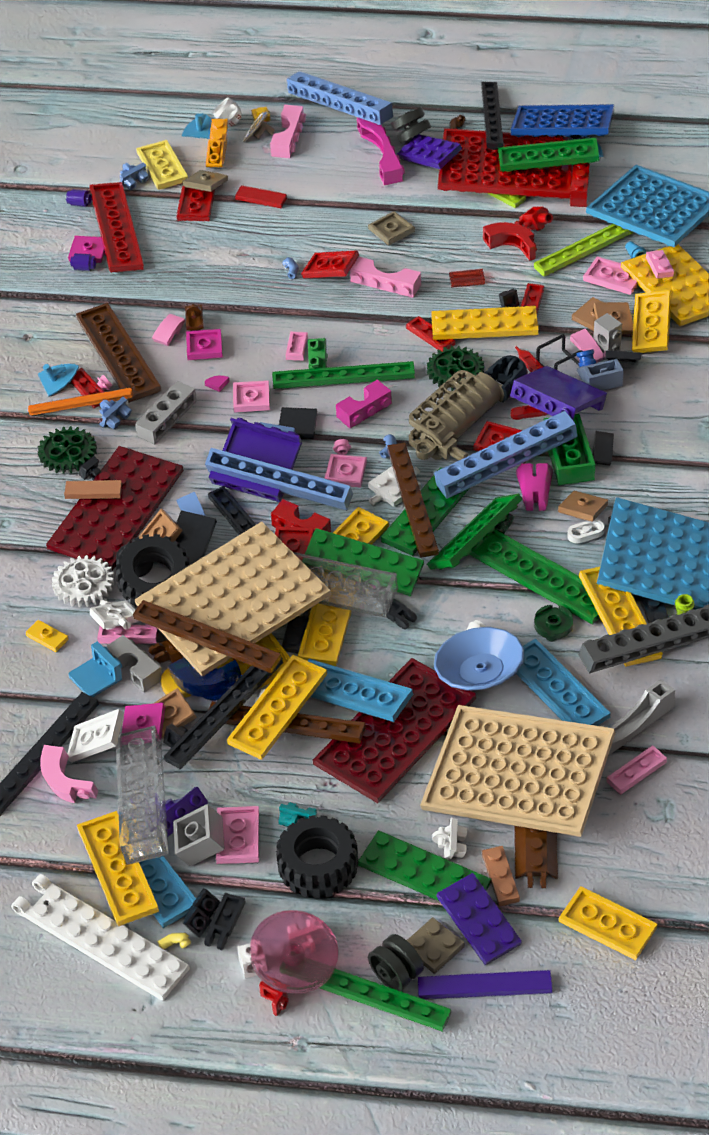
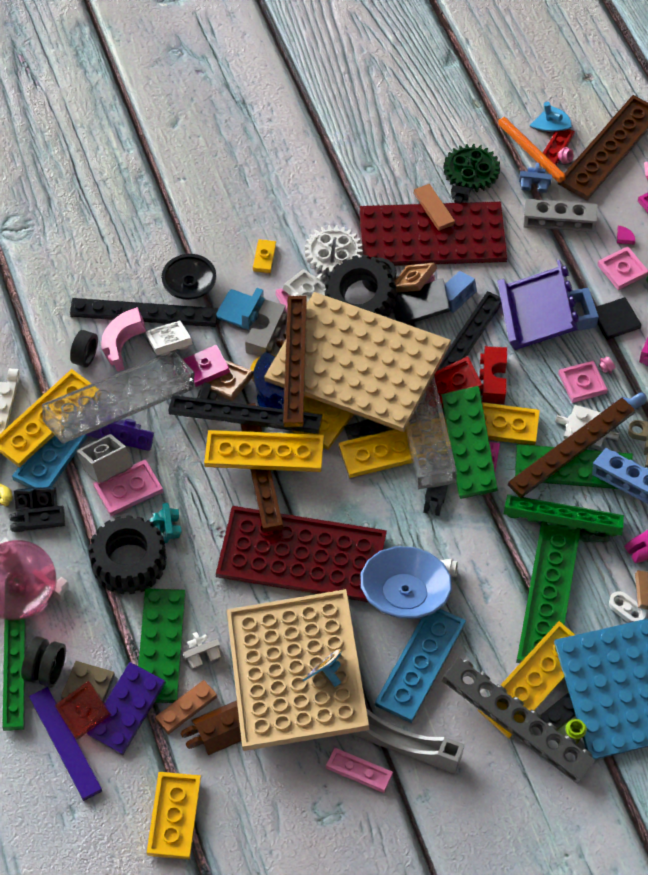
camera: 60 degrees right, 10 degrees up
(33, 696) = (185, 270): none -> black dish
(56, 809) = (84, 348): none -> black tyre
(287, 480) = (523, 333): medium blue brick -> none
(362, 692) = (321, 504): dark azure plate -> none
(463, 951) = (82, 710): none -> clear red plate
(536, 735) = (329, 667): none -> dark azure shield
(553, 631) = (493, 638): dark green plate -> none

